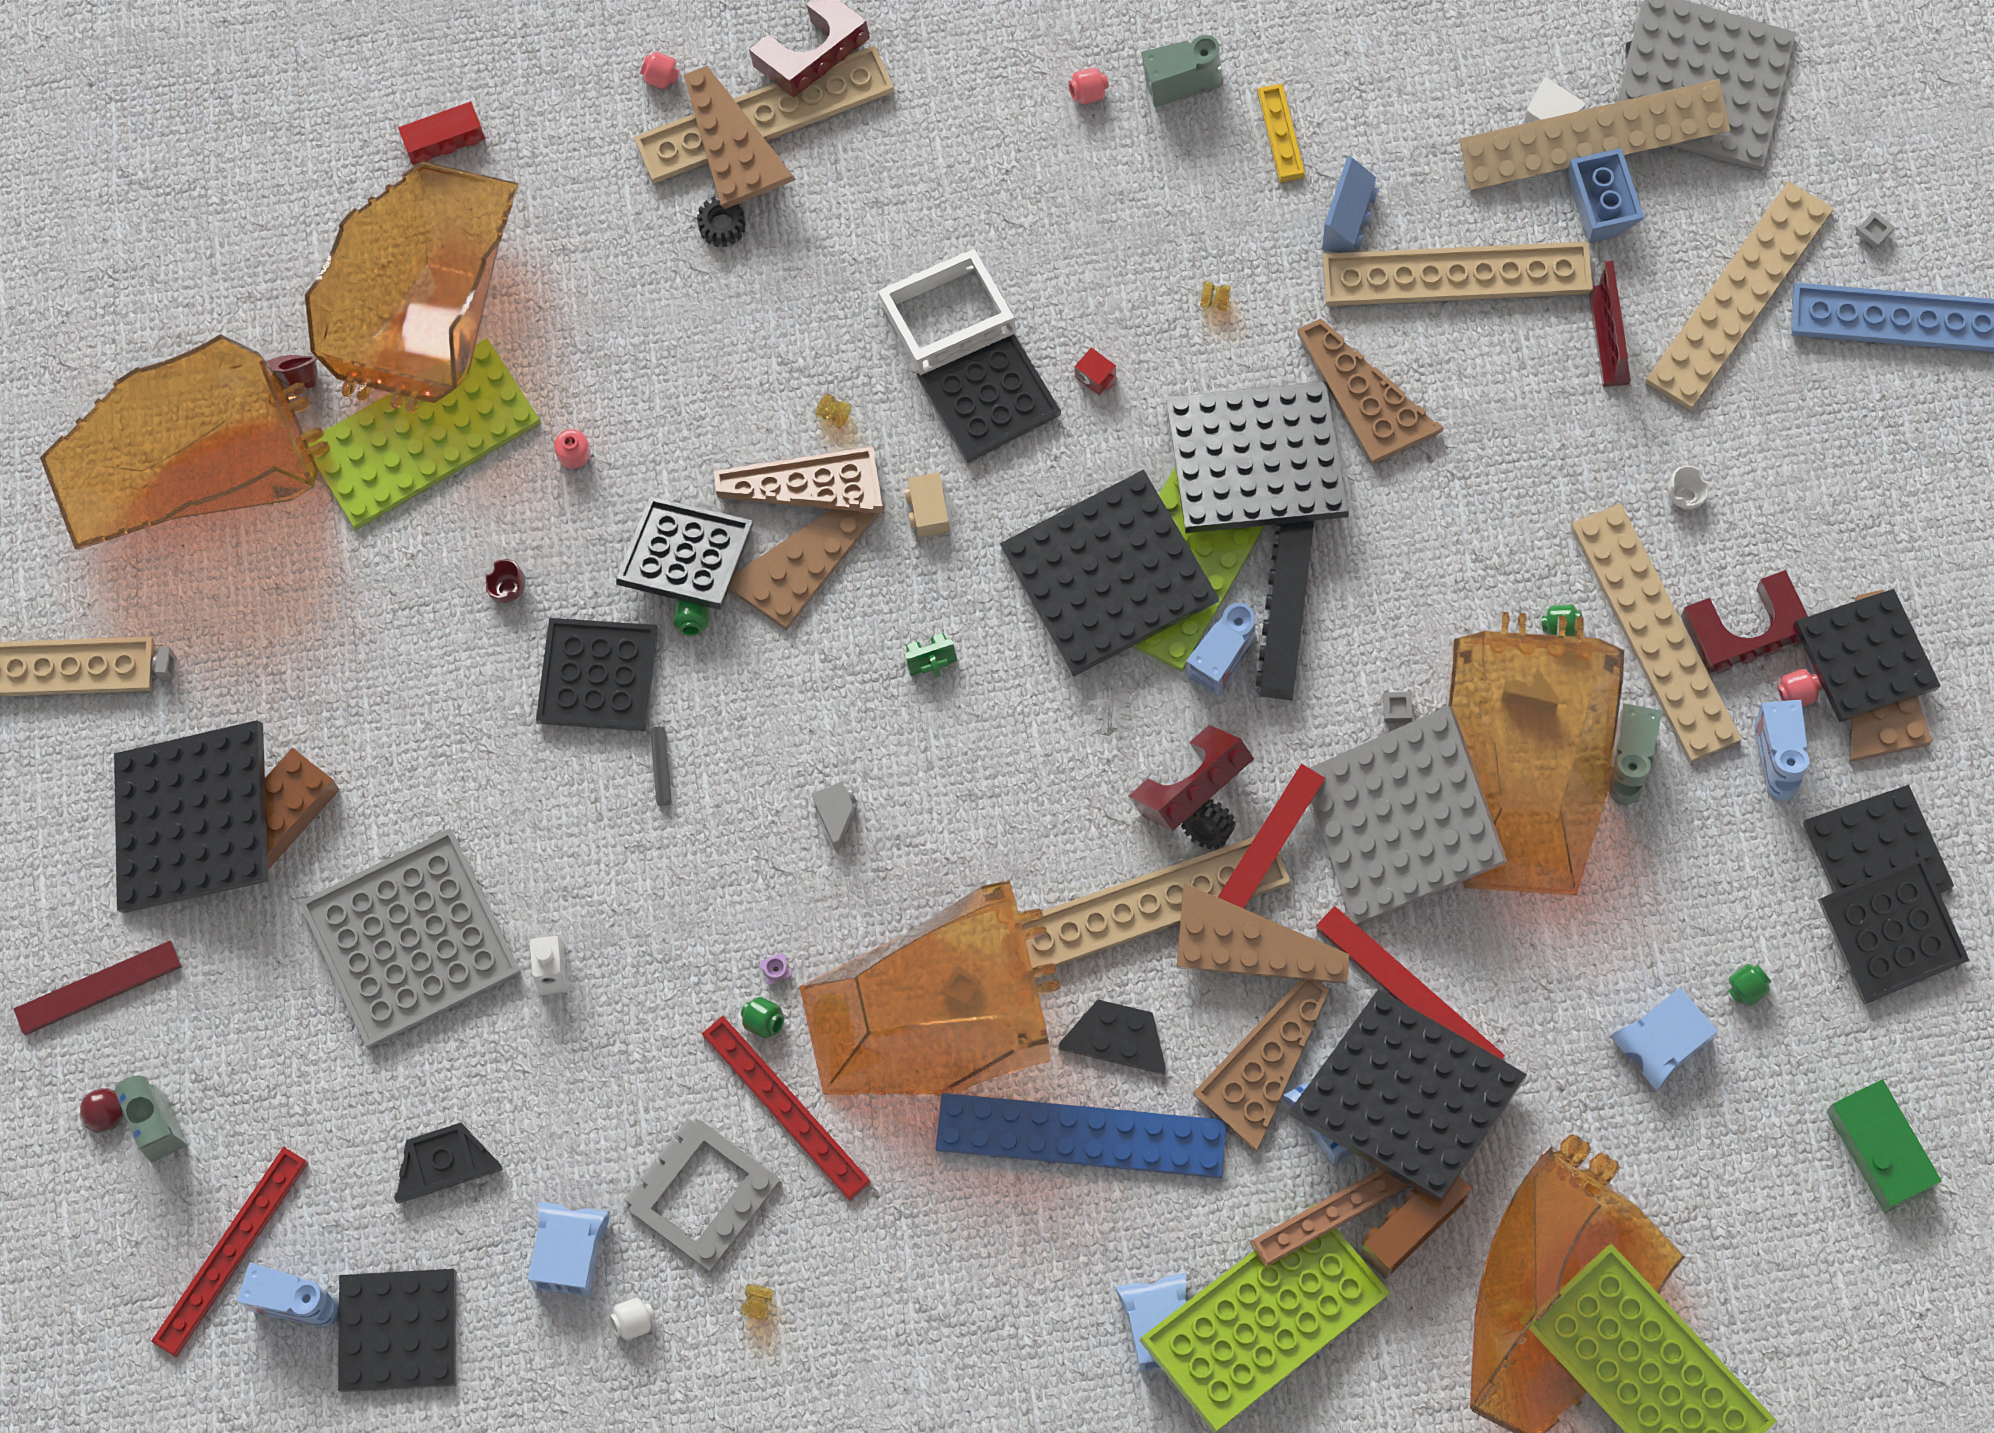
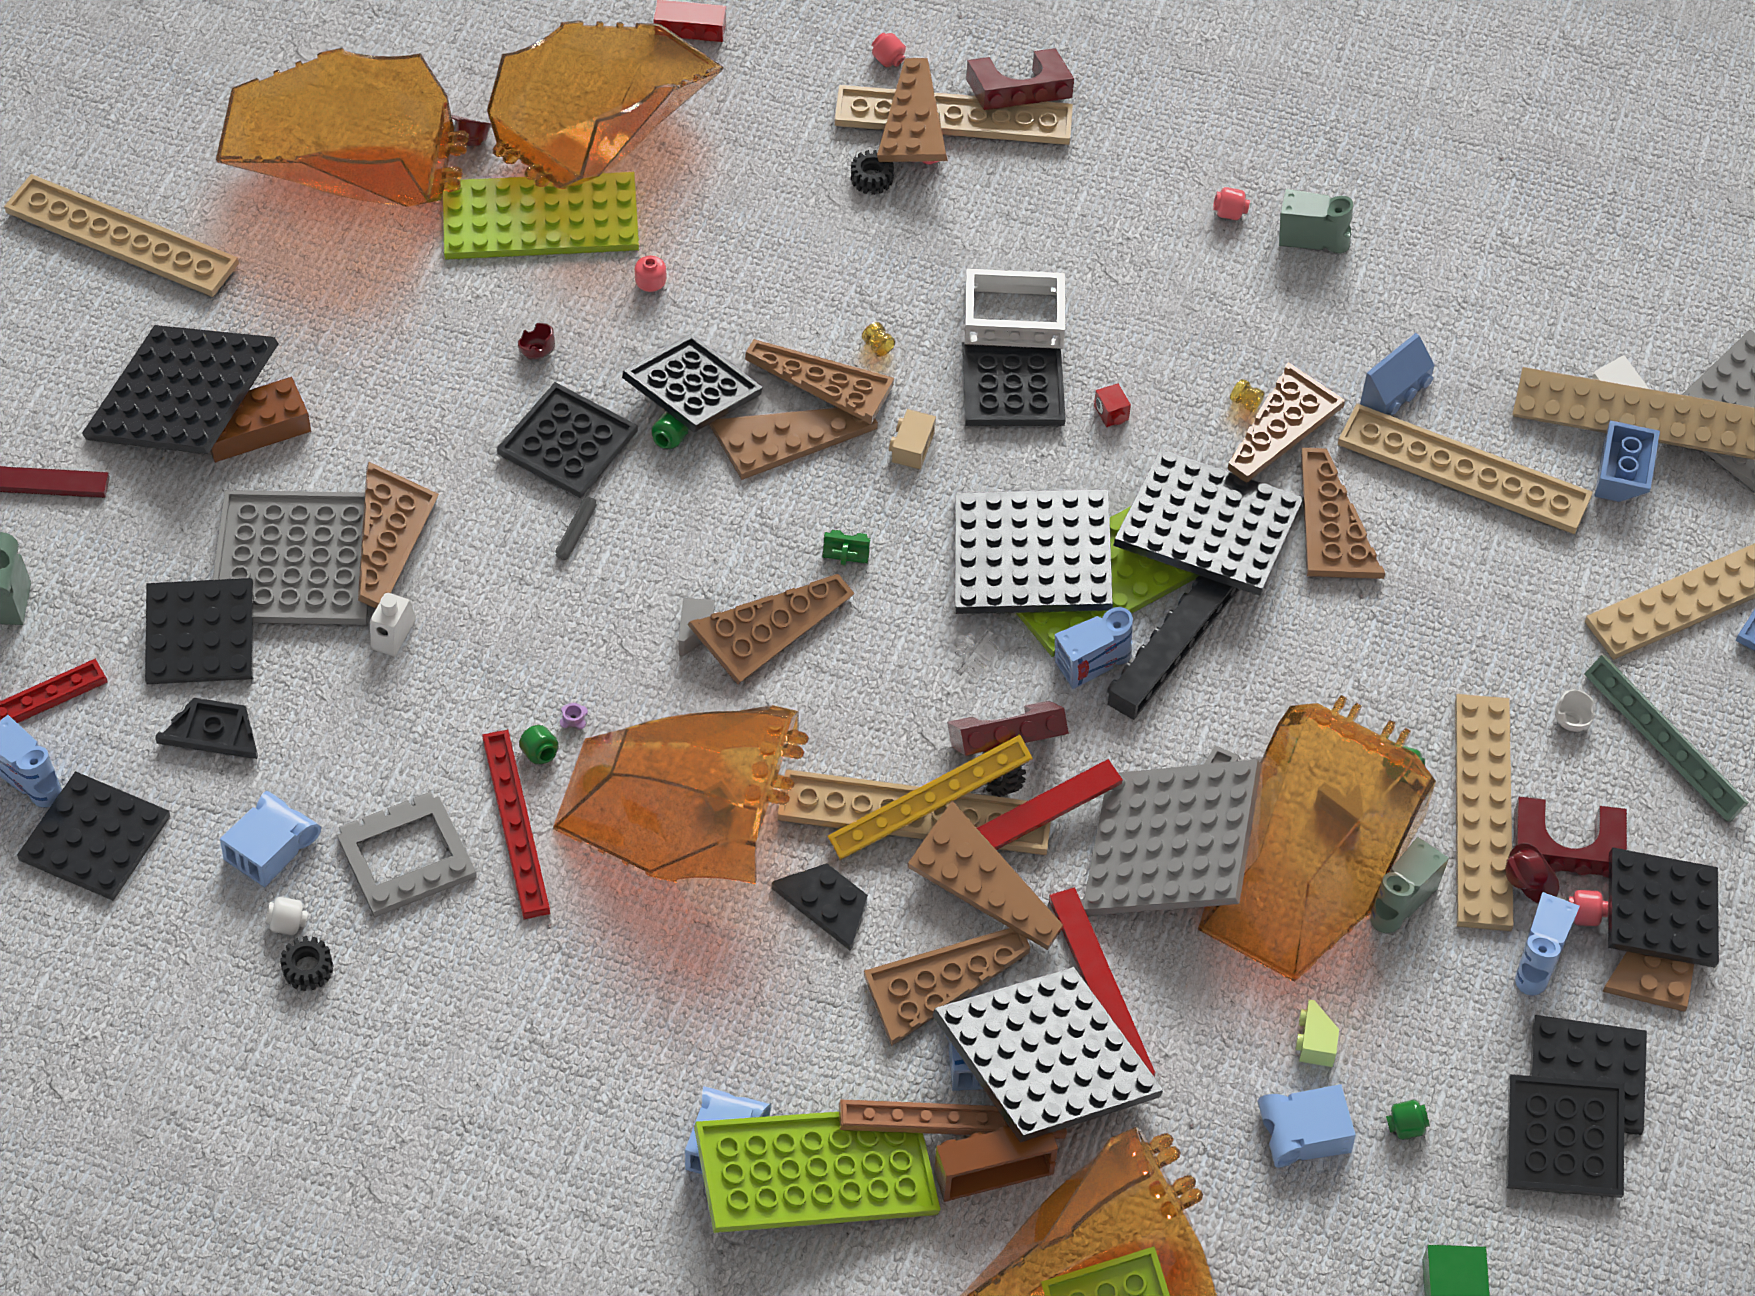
camera: 20 degrees right, 15 degrees down
(164, 664) = (235, 281): light grey plate -> none
(368, 1067) = (199, 631): none -> black plate
(485, 854) = (391, 525): none -> medium nougat wing
(684, 1372) = (306, 949): none -> black tyre
(756, 1302) = (396, 953): clear yellow wheel -> none
(901, 788) = (762, 628): none -> medium nougat wing
(1081, 1135) = (750, 962): blue plate -> none
(1161, 888) = (930, 797): none -> yellow tile
(1267, 299) = (1285, 418): none -> wing
(1281, 133) = (1374, 306): yellow tile -> none
(1609, 329) = (1574, 565): dark red fence -> none
(1629, 943) = (1319, 1036): none -> yellowish green slope
(1733, 680) = (1531, 872): none -> dark red piece
(1780, 473) = (1666, 738): none -> sand green plate

